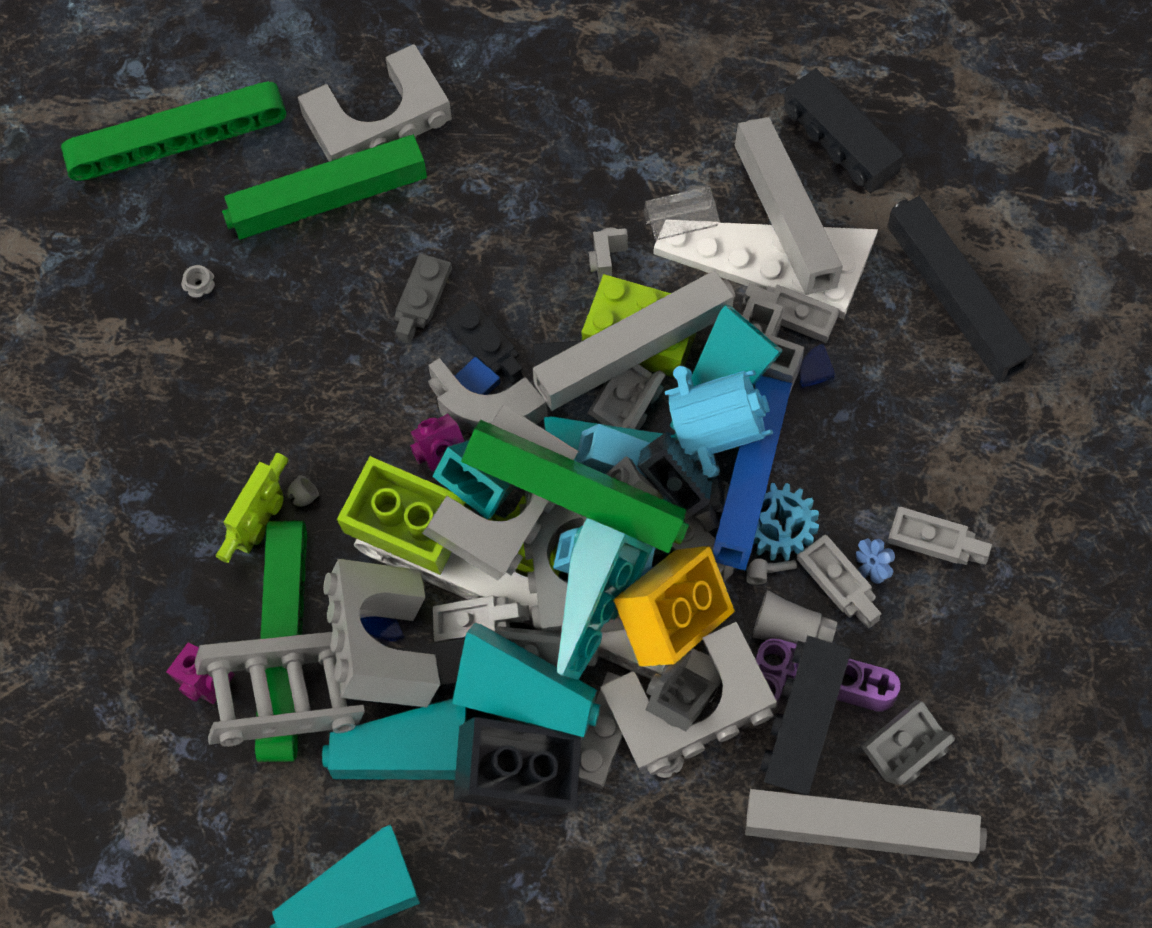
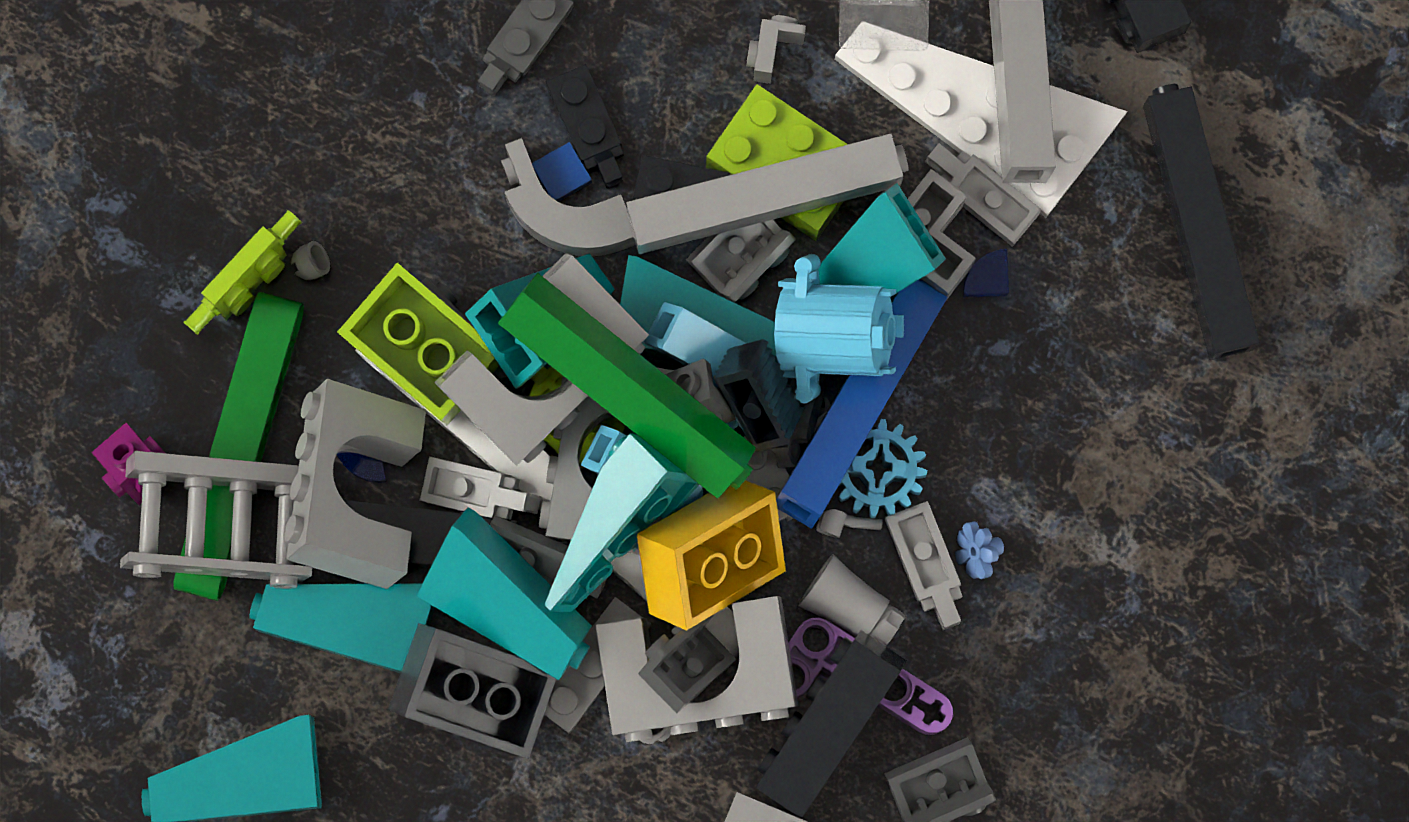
camera: 10 degrees right, 15 degrees up
(433, 438) = (491, 249): magenta brick -> none
(937, 538) = (1060, 542): light grey hinge -> none

